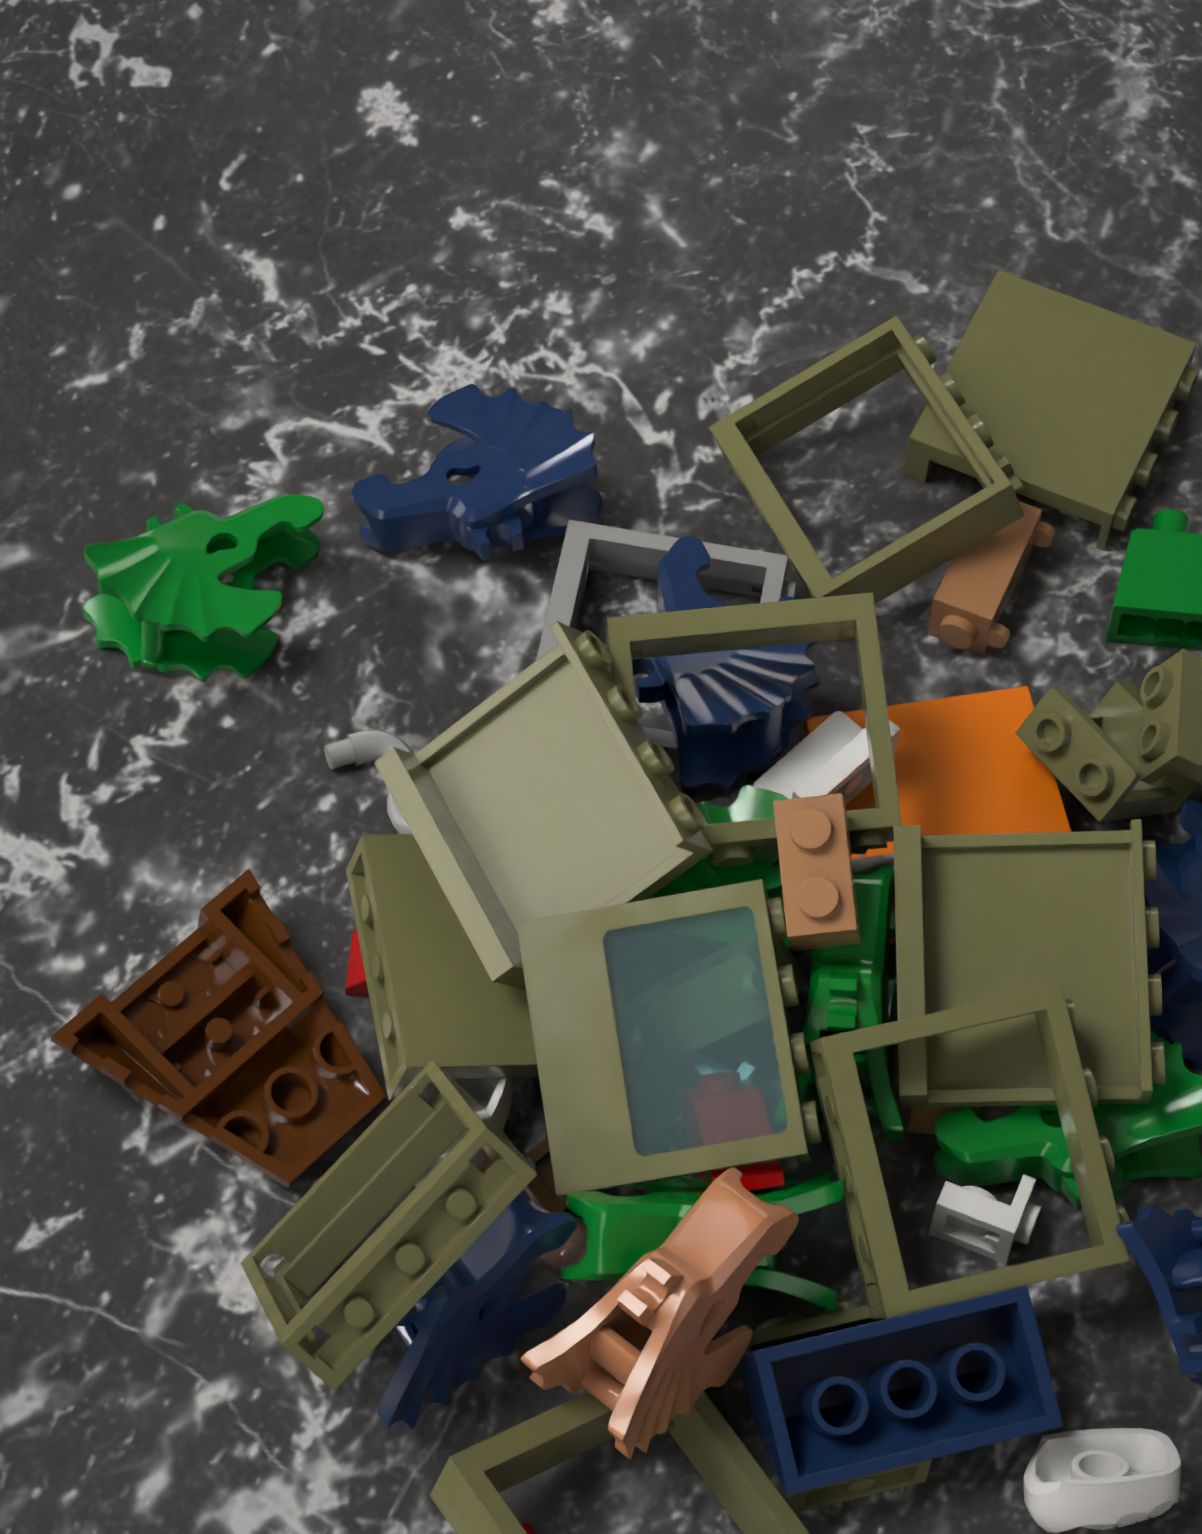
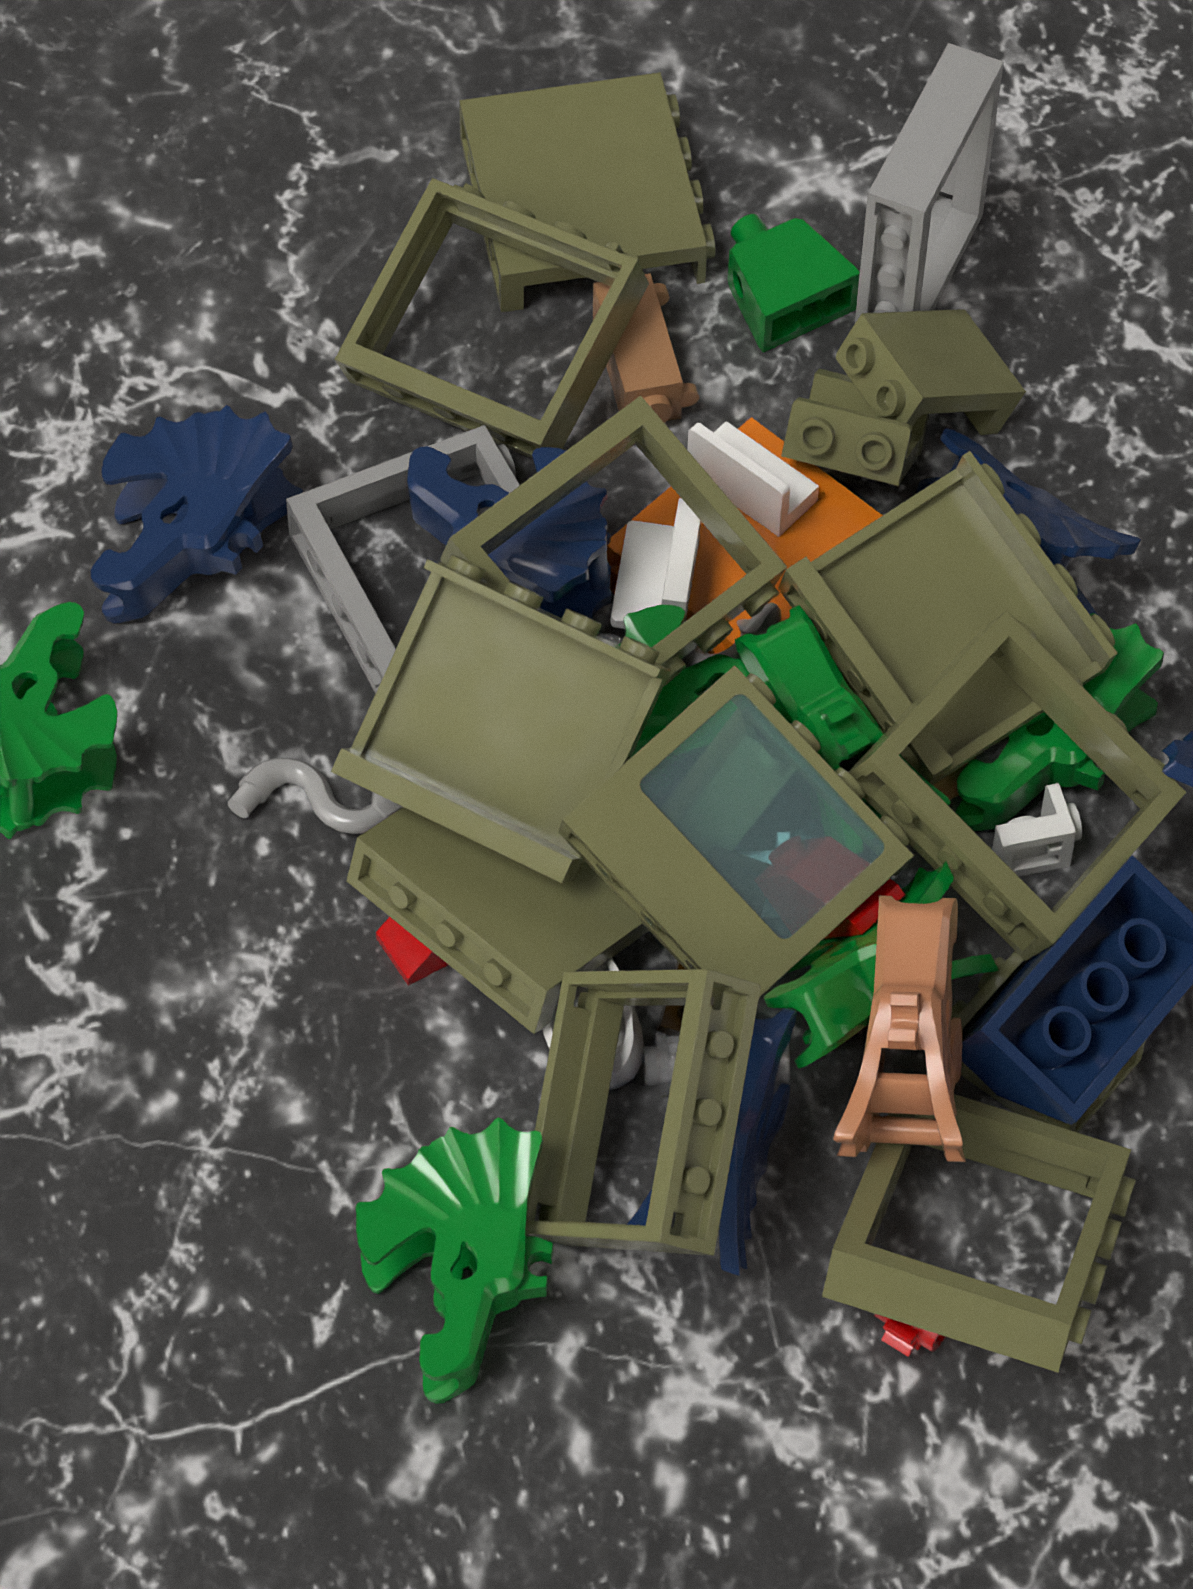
camera: 35 degrees left, 0 degrees up
(196, 1217) = (469, 1212): none -> green animal
(234, 1041) = (359, 1064): reddish brown wedge -> none
(817, 872) = (762, 634): medium nougat brick -> none
(977, 735) = (752, 476): none -> white panel

